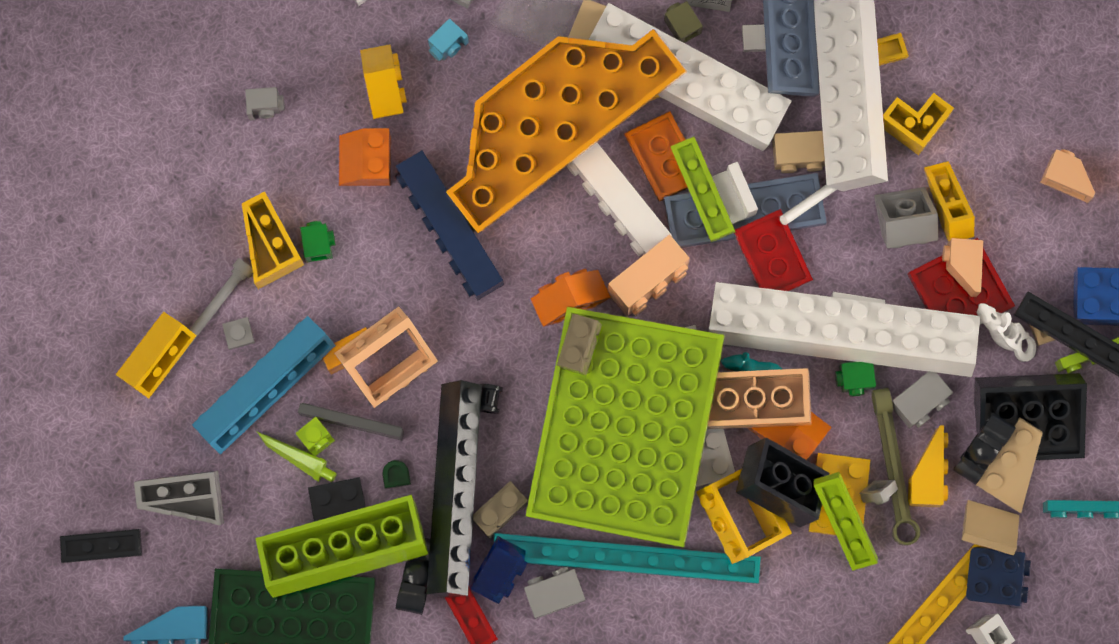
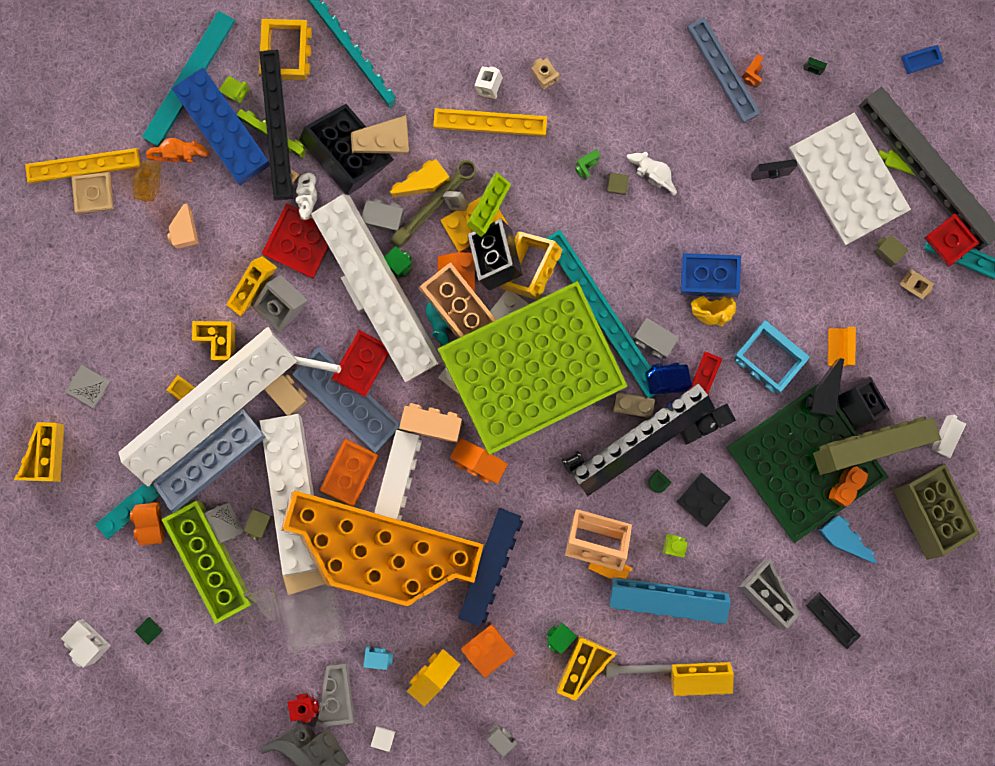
camera: 130 degrees left, 5 degrees up
(238, 333) = (649, 641): light grey plate -> none
(305, 461) = (691, 533): lime bar -> none
(341, 546) = (728, 477): lime brick -> none
(351, 421) = (649, 531): dark grey tile -> none
(579, 344) = (508, 428): dark tan brick -> none
(702, 189) = (354, 432): lime plate -> none
(735, 193) = (344, 412): white panel -> none
(753, 38) = (235, 474): white tile -> none
(965, 263) = (283, 247): light nougat slope -> none
(984, 448) = (385, 158): black piece -> none
(990, 527) = (428, 124): tan tile -> none
(997, 577) = (453, 100): dark blue bracket -> none

